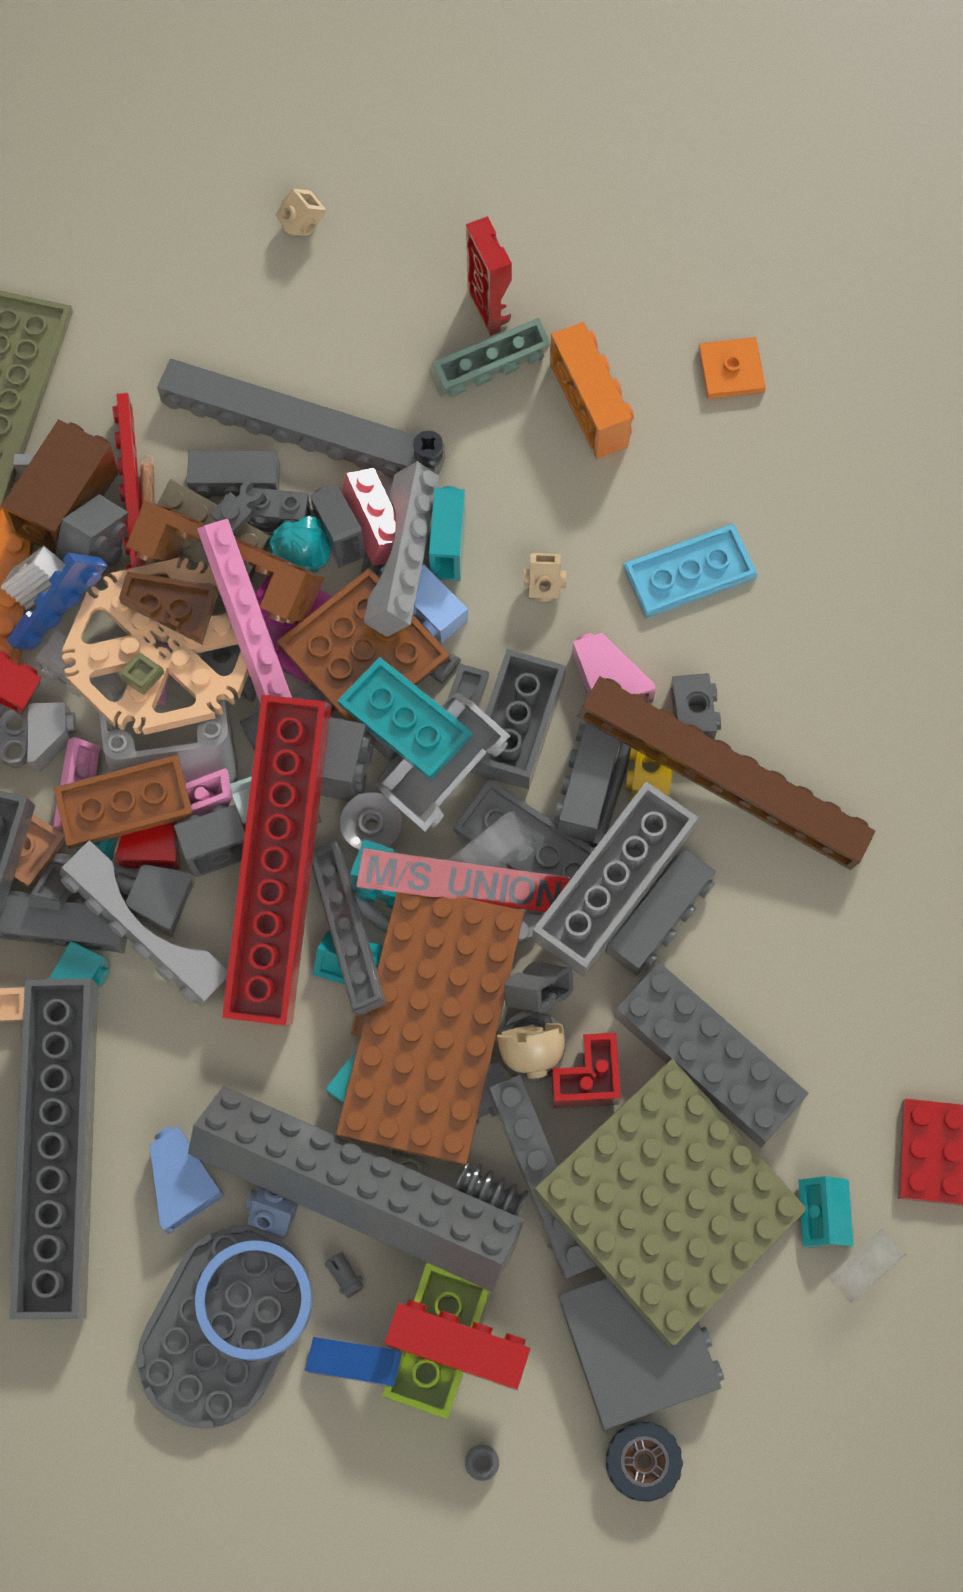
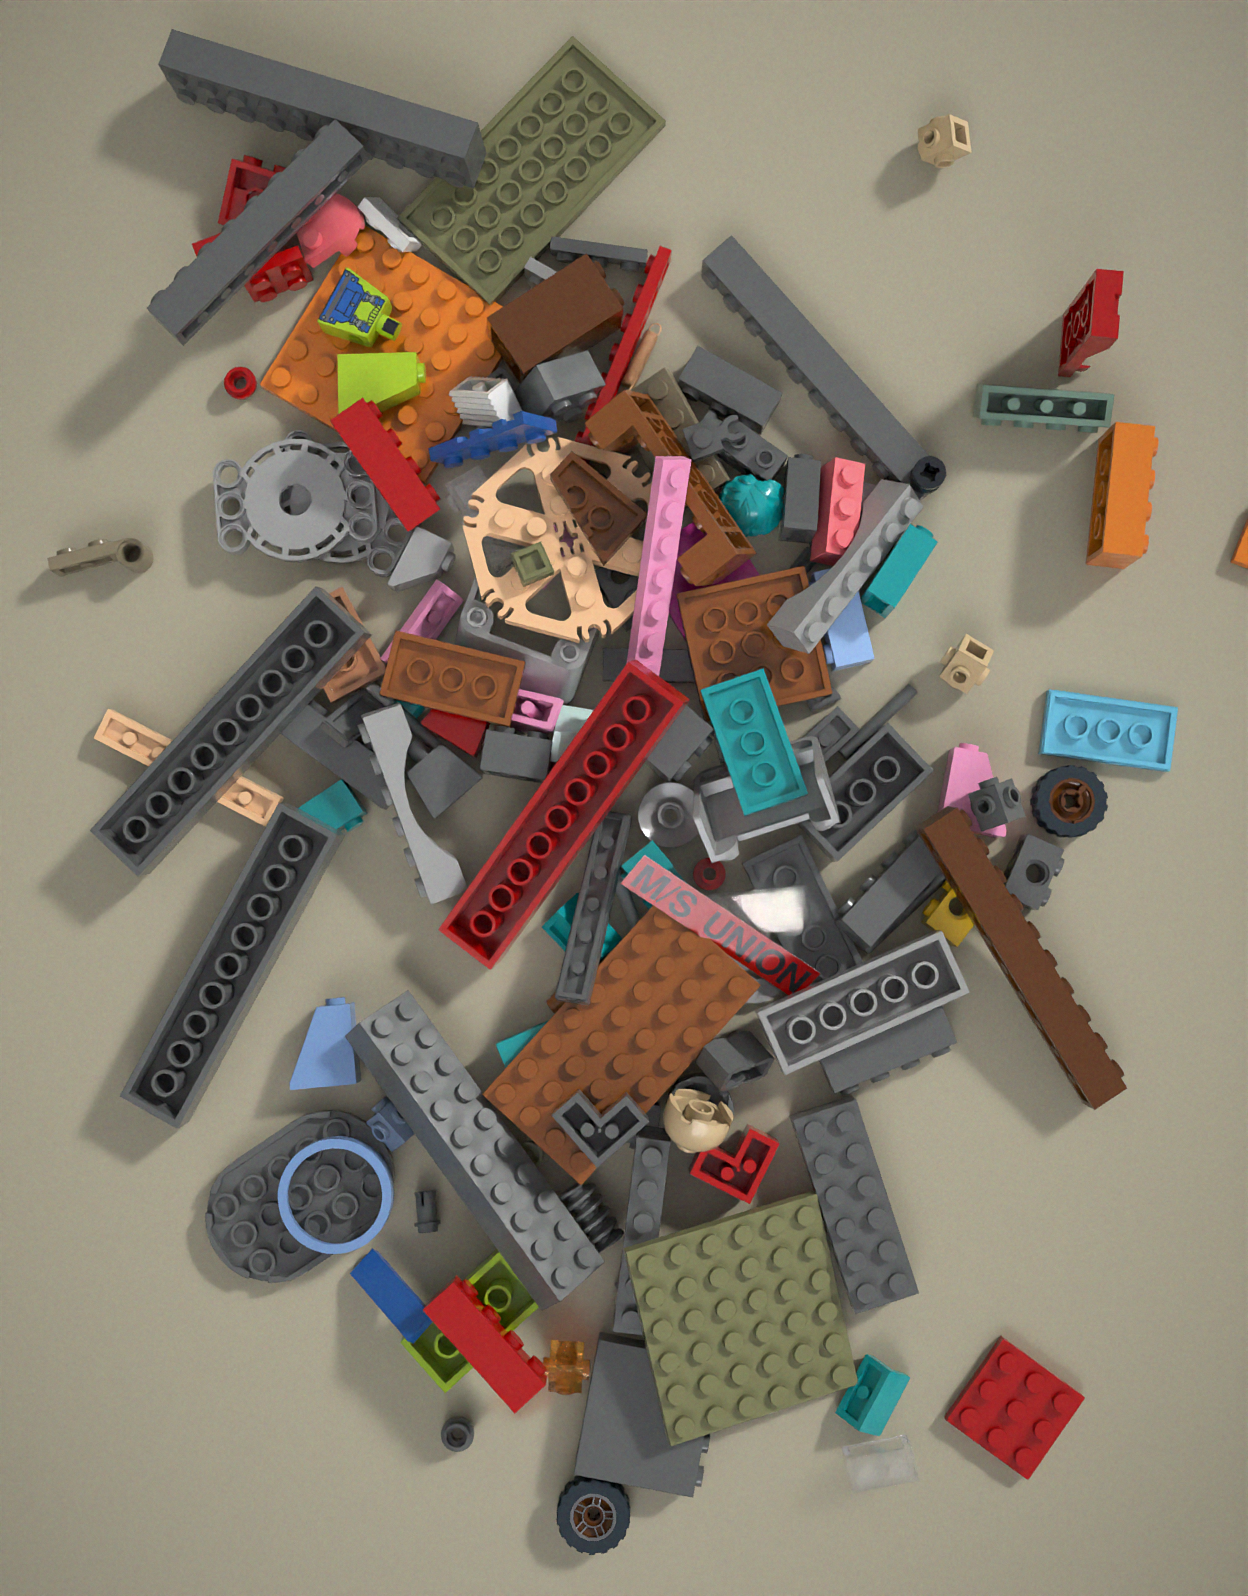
camera: 30 degrees right, 15 degrees up
(92, 418) = (627, 257): none -> dark grey plate
(432, 843) = (706, 884): none -> red plate
(453, 1100) = (596, 1132): none -> dark grey brick
(506, 643) = (877, 721): none -> dark grey bar
(549, 1343) = (566, 1367): none -> clear orange brick
(630, 661) = (996, 803): none -> dark grey brick
(696, 655) = (1049, 801): none -> black wheel

